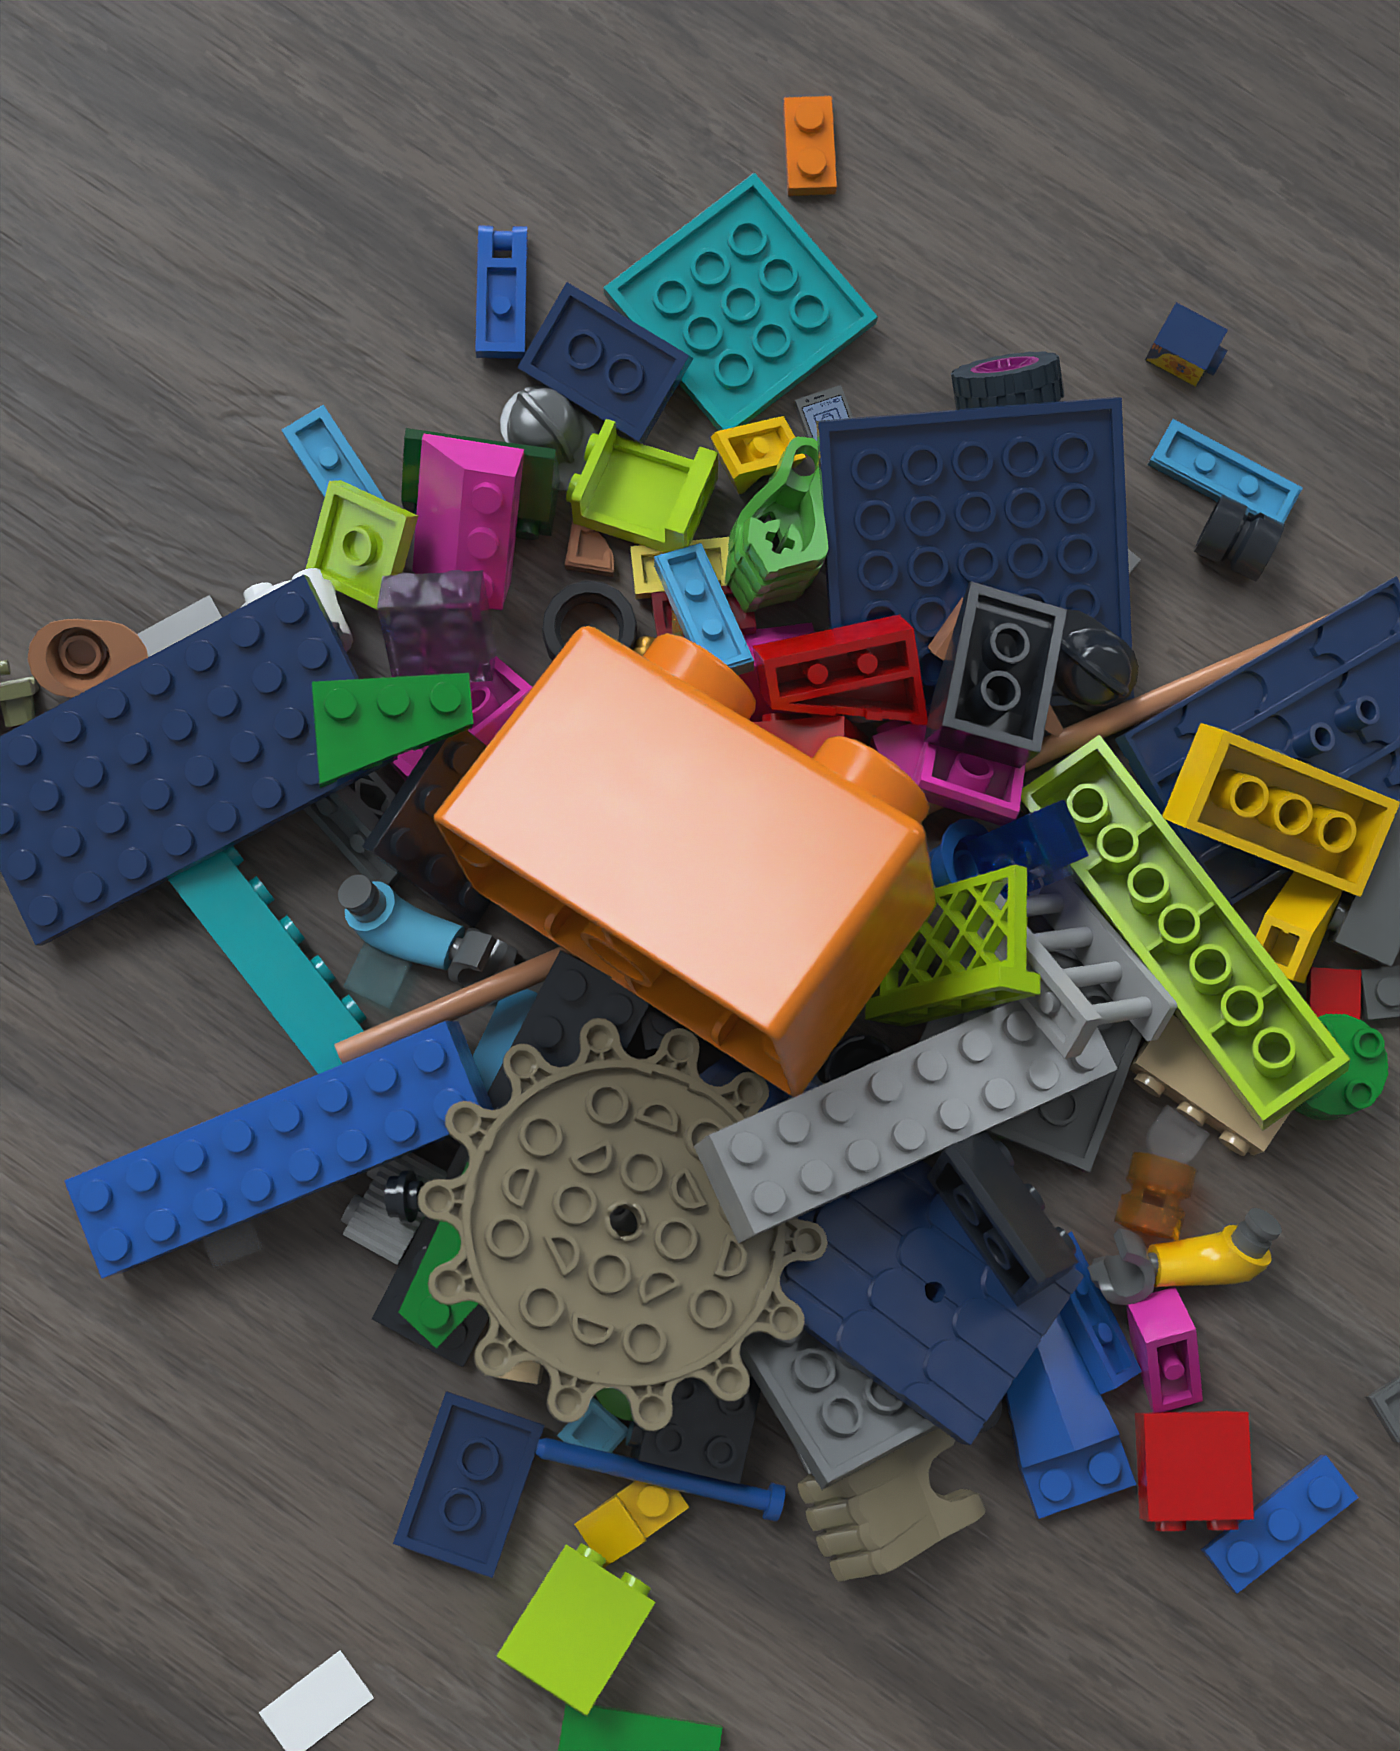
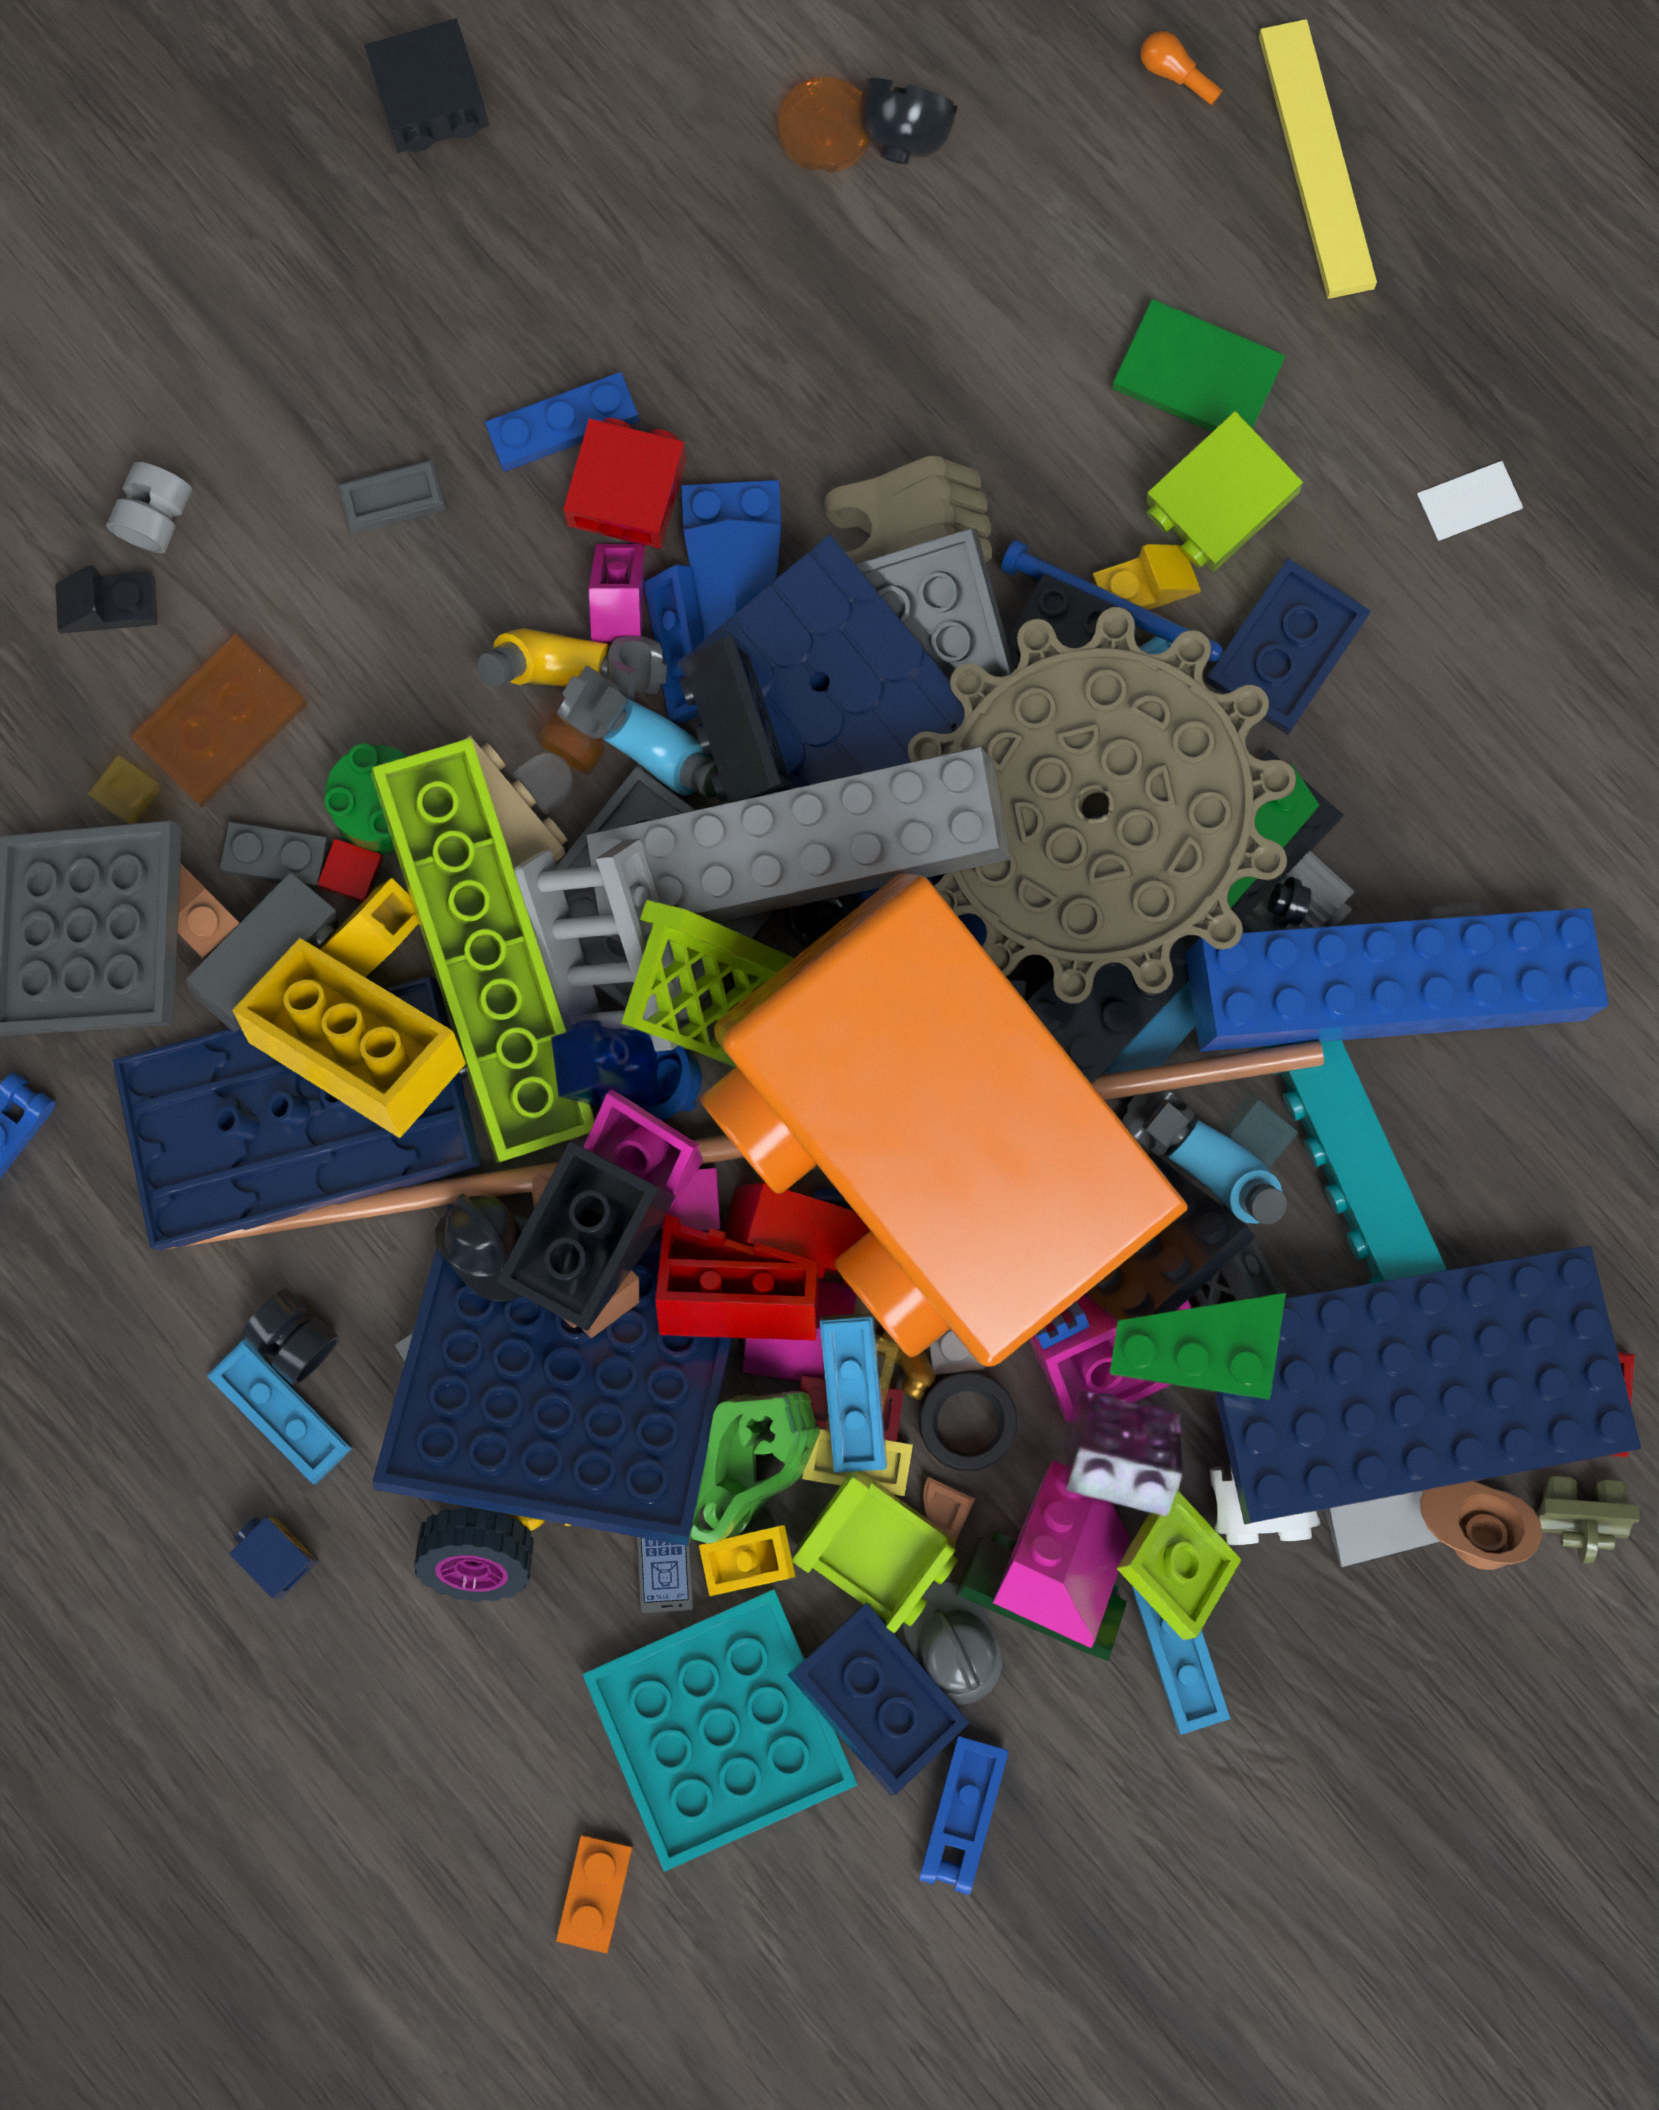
camera: 155 degrees left, 0 degrees up
(1087, 1199) = (650, 739): none -> piece

